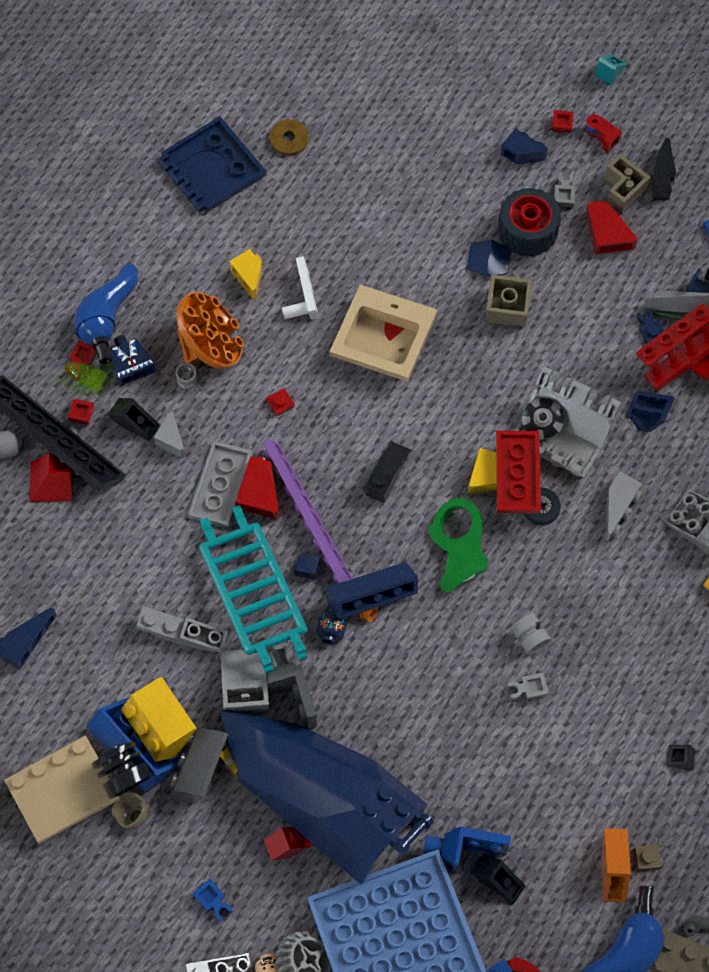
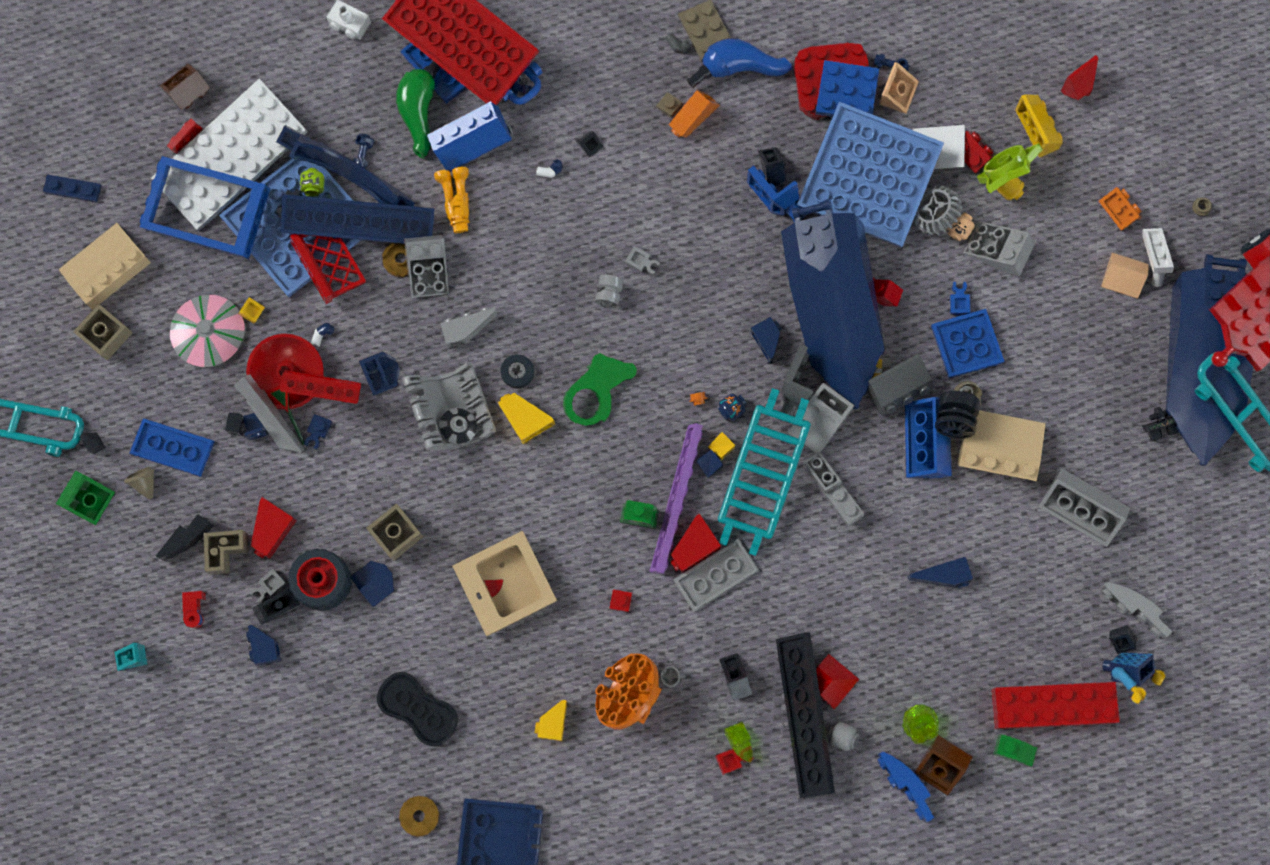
camera: 130 degrees left, 10 degrees up
(81, 411) = (767, 716): red plate -> none
(97, 312) = (691, 785): blue animal -> none
(130, 360) = (699, 726): dark blue torso -> none
(159, 720) = (902, 434): yellow slope -> none
(169, 437) = (722, 639): light grey slope -> none
(171, 863) = (967, 343): none -> blue plate
(309, 306) = (534, 656): white piece -> none
(310, 588) = (722, 446): none -> yellow slope
(327, 472) = (639, 514): none -> green torso
(356, 712) = (767, 336): none -> dark blue slope
(372, 590) = (685, 403): dark blue brick -> none
(378, 198) = (428, 717): none -> black plate
(386, 472) = (595, 483): black slope -> none
(518, 472) = (514, 397): red plate -> none
(544, 174) = (275, 606): none -> black slope
(562, 121) = (211, 644): red plate -> none
(688, 699) = (552, 171): none -> arm

